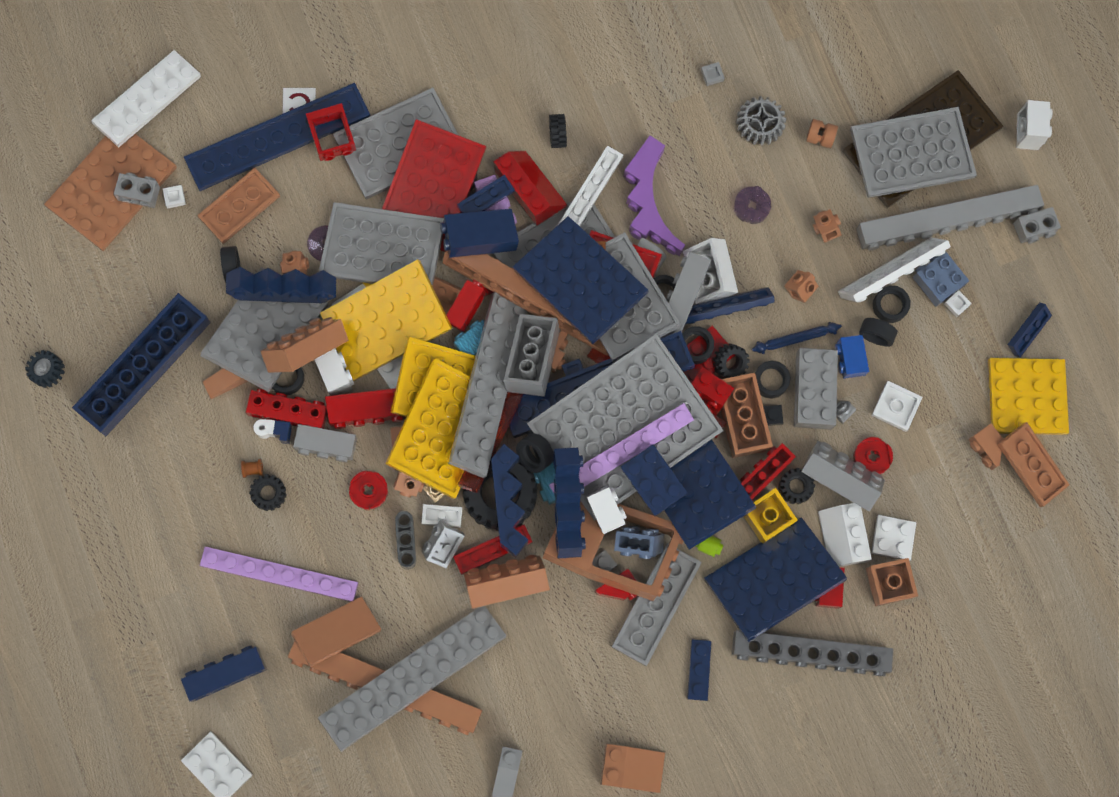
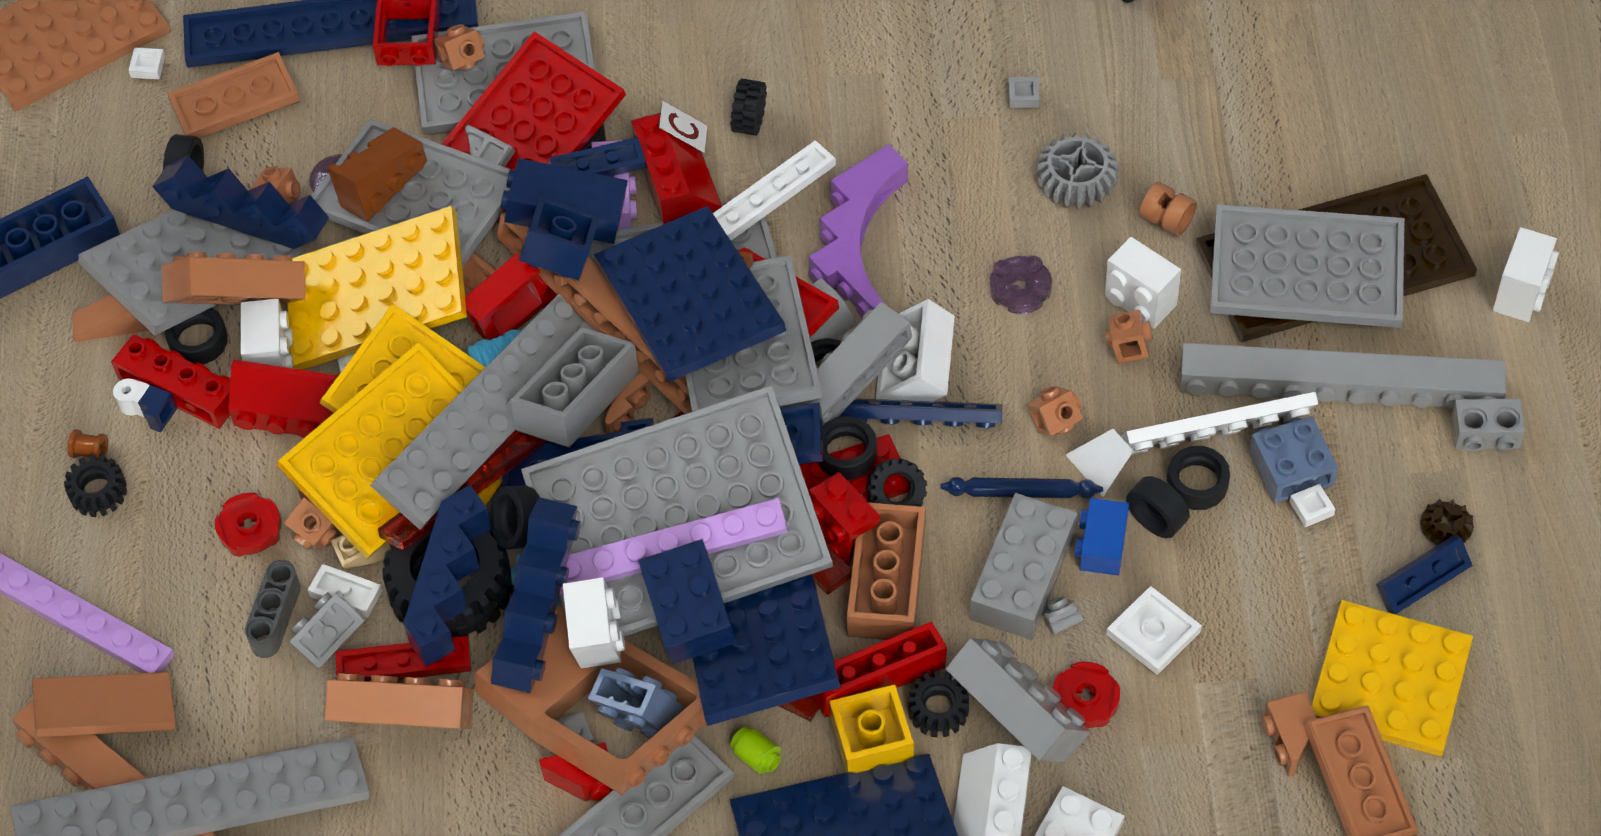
camera: 30 degrees right, 20 degrees down
(135, 193) = (94, 36): light grey brick -> none
(325, 443) = (212, 439): light grey brick -> none
(360, 244) = (377, 173): none -> dark orange wedge
(370, 139) = (460, 47): none -> nougat brick
(414, 204) = (488, 147): none -> light grey tile
(490, 264) = (559, 238): none -> dark blue brick
(523, 155) = (683, 126): none -> white sticker
(774, 415) = (939, 590): black plate -> none
(785, 375) = (956, 514): black tyre -> none
(825, 189) = (1142, 281): none -> white brick
(837, 309) = (1101, 458): none -> white sticker
(1030, 300) = (1439, 532): none -> dark brown gear

